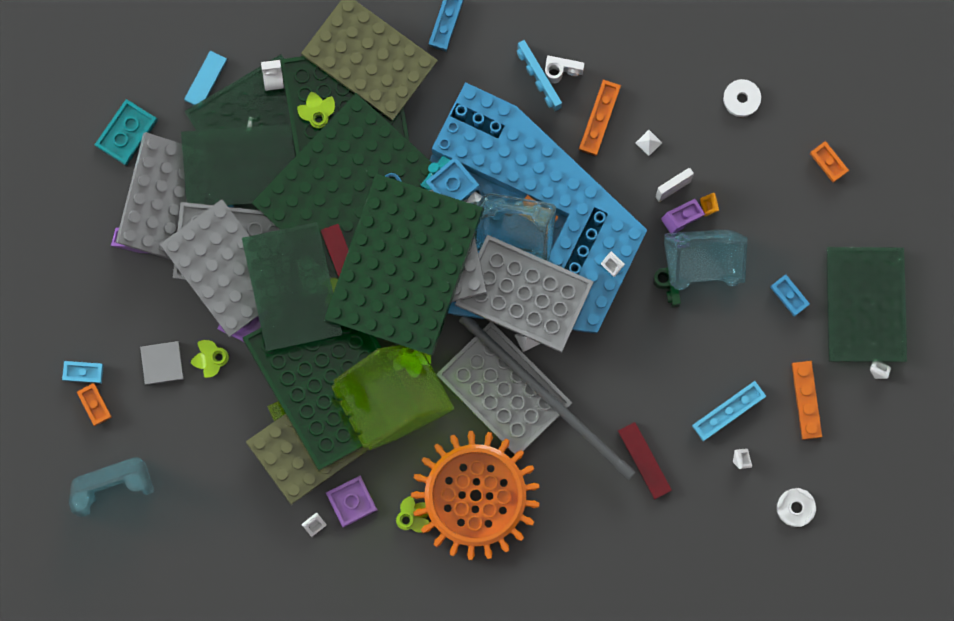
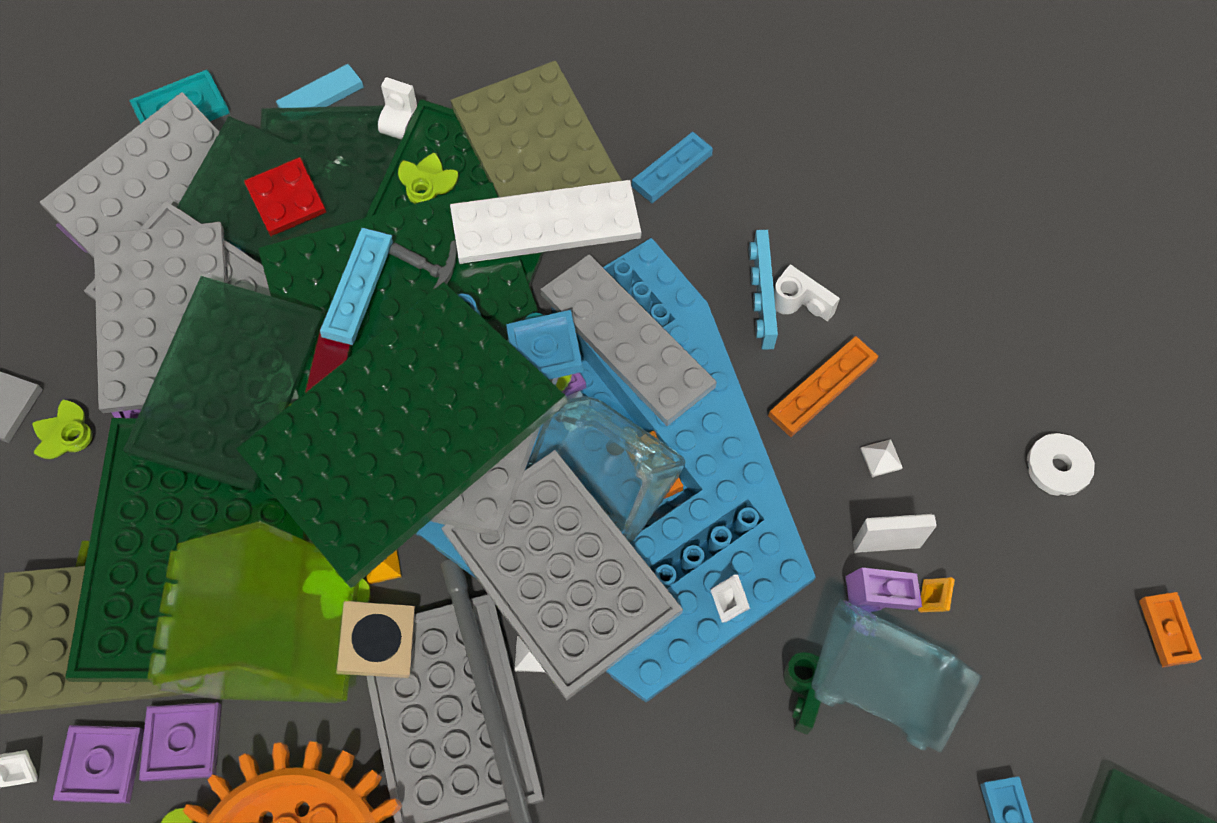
camera: 25 degrees right, 15 degrees down
(245, 163) = (285, 196): none -> red plate
(326, 197) = (356, 286): none -> medium azure plate
(348, 164) = (444, 273): none -> dark grey piece
(383, 470) = (180, 742): none -> medium lavender tile
(401, 103) = (545, 221): none -> white plate
(450, 373) = (375, 639): none -> tan tile
(487, 151) = (629, 339): none -> light grey plate

